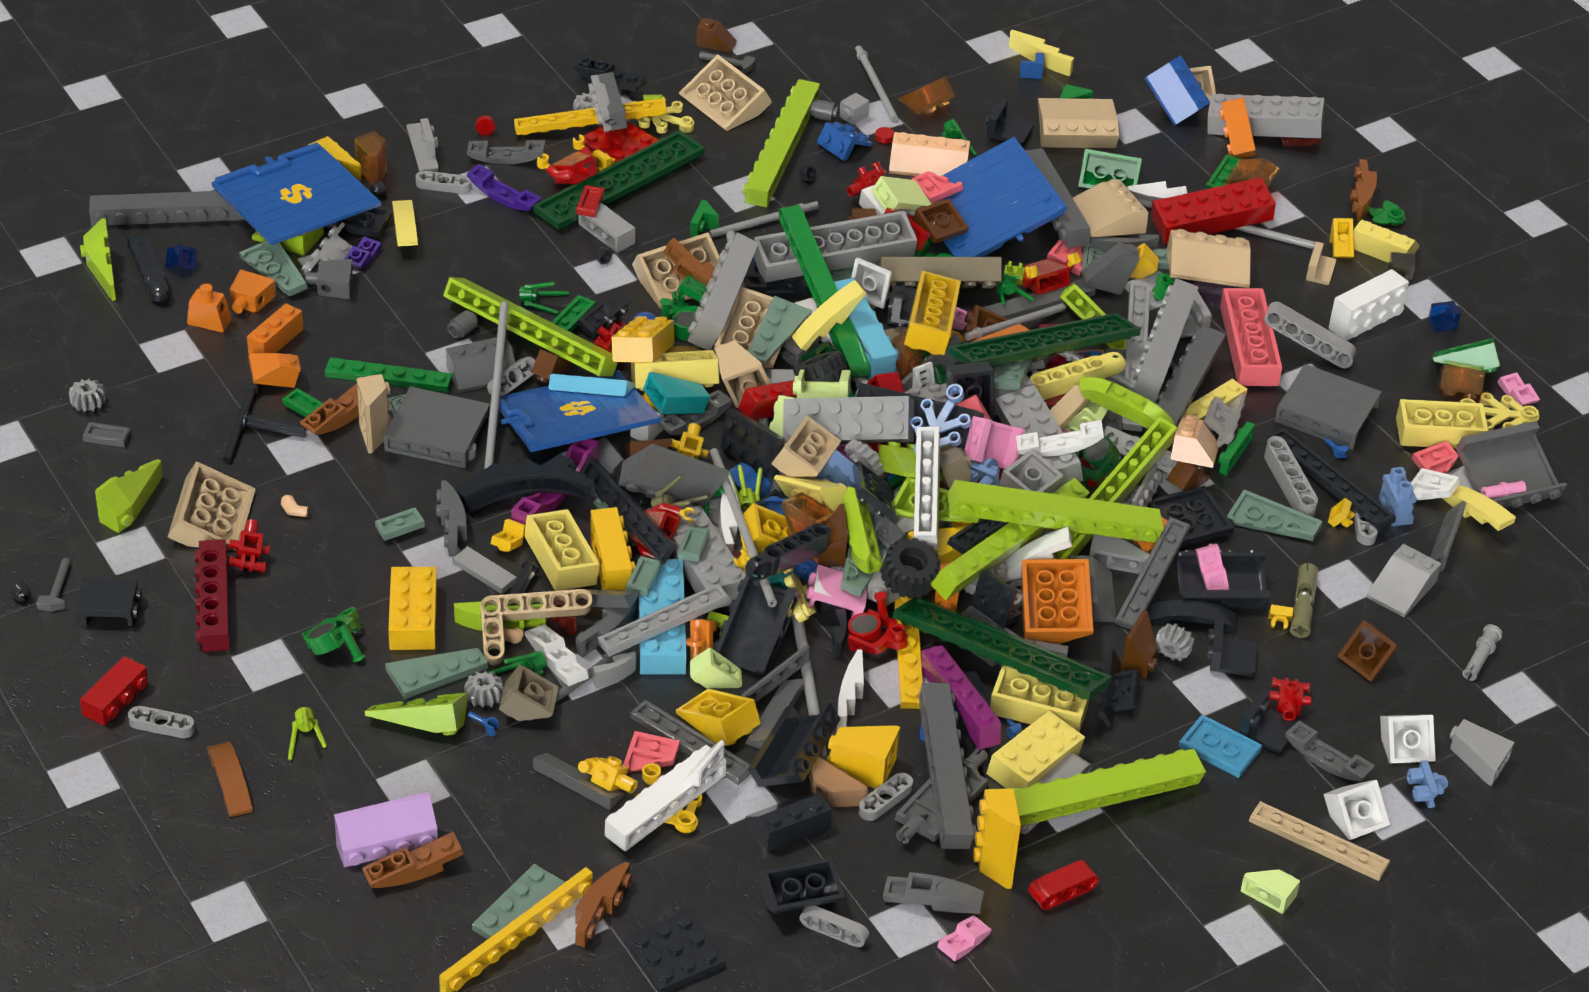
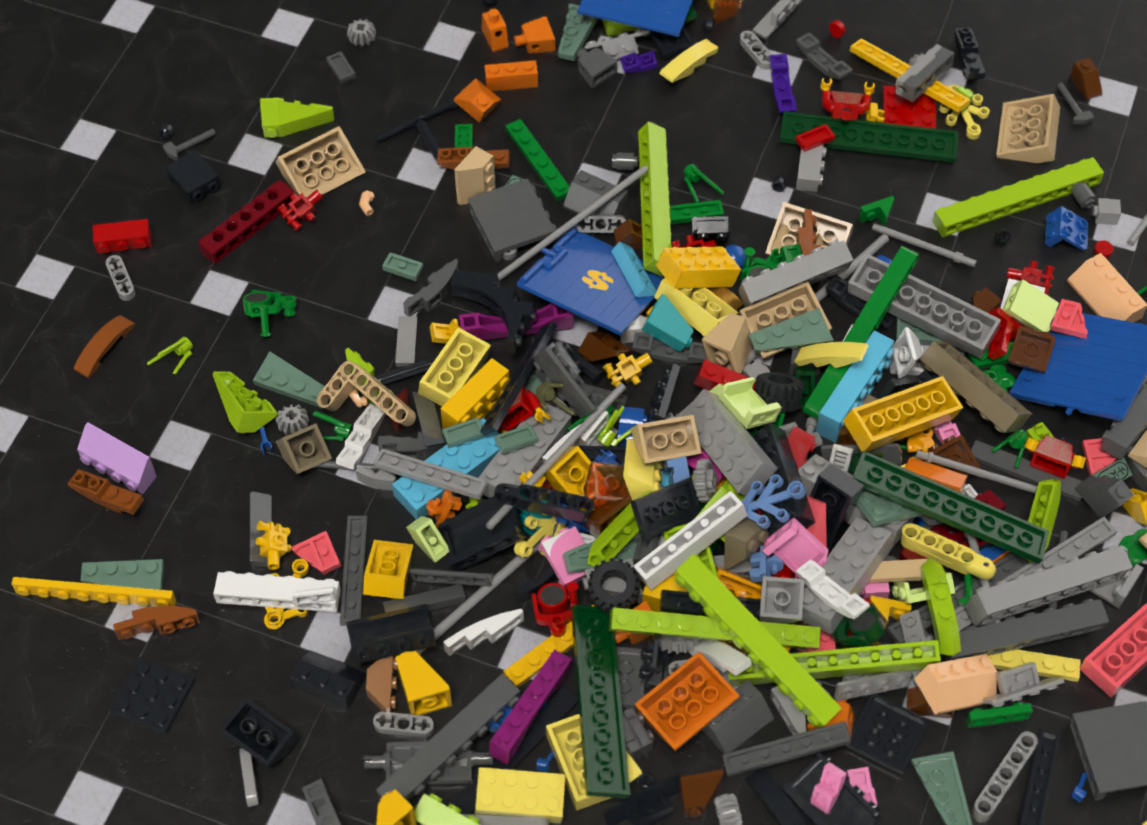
camera: 55 degrees right, 15 degrees up
(413, 608) = (329, 329): yellow brick -> none

